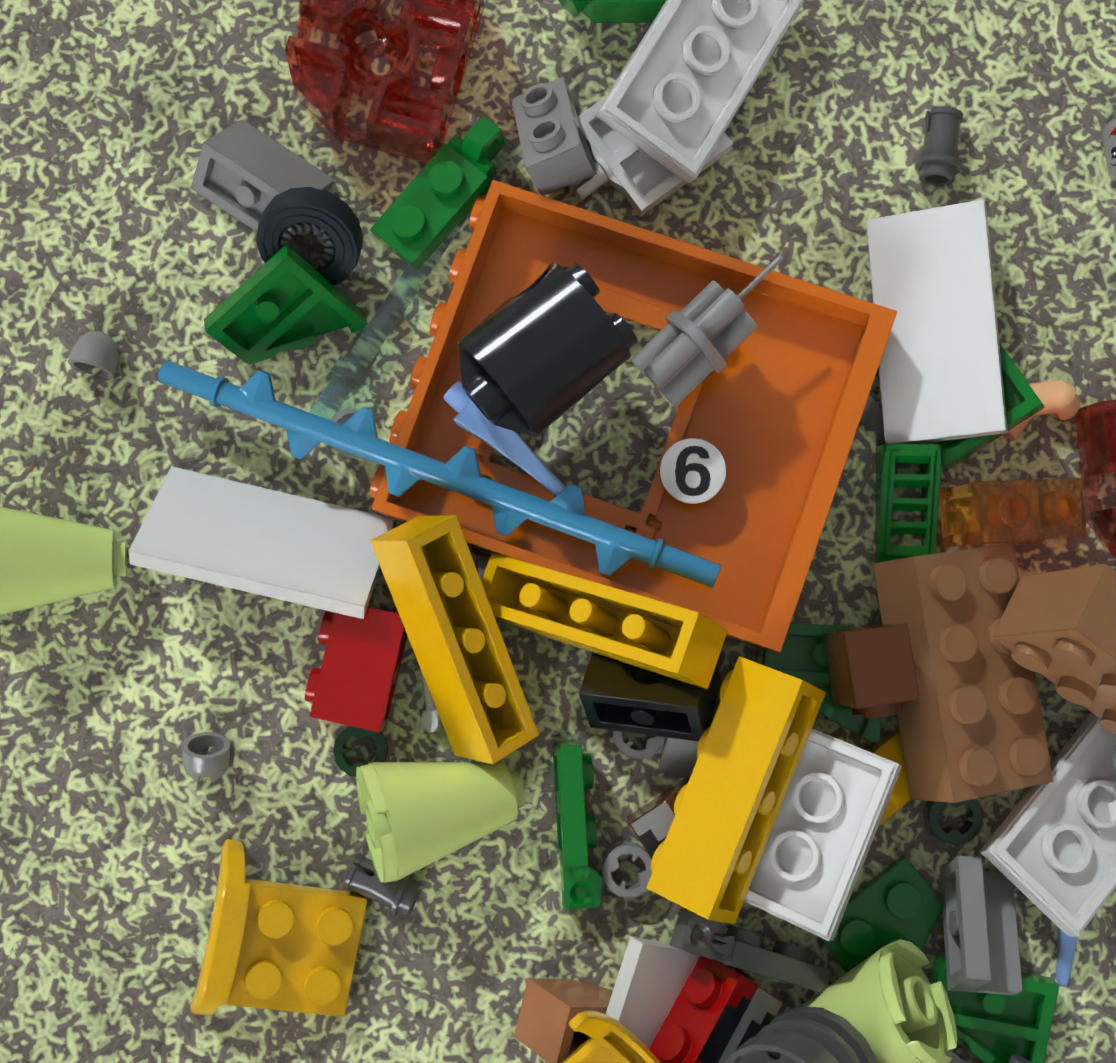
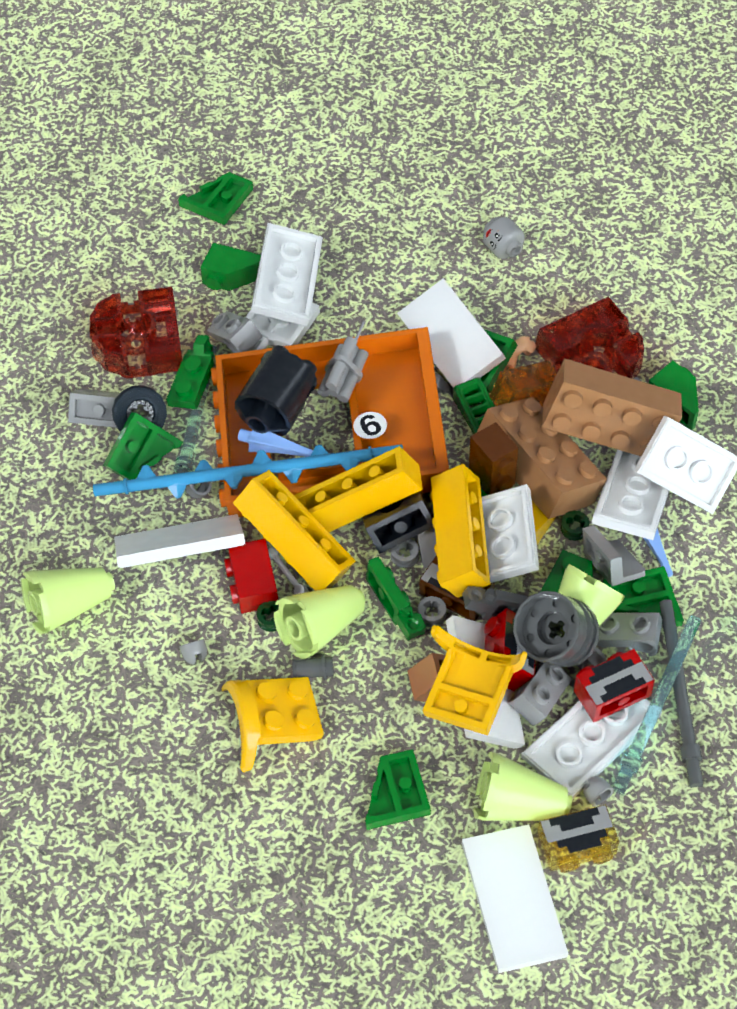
camera: 25 degrees left, 30 degrees down
(97, 350) = (53, 502): light grey hinge -> none
(939, 156) = (414, 274): dark grey pin -> none

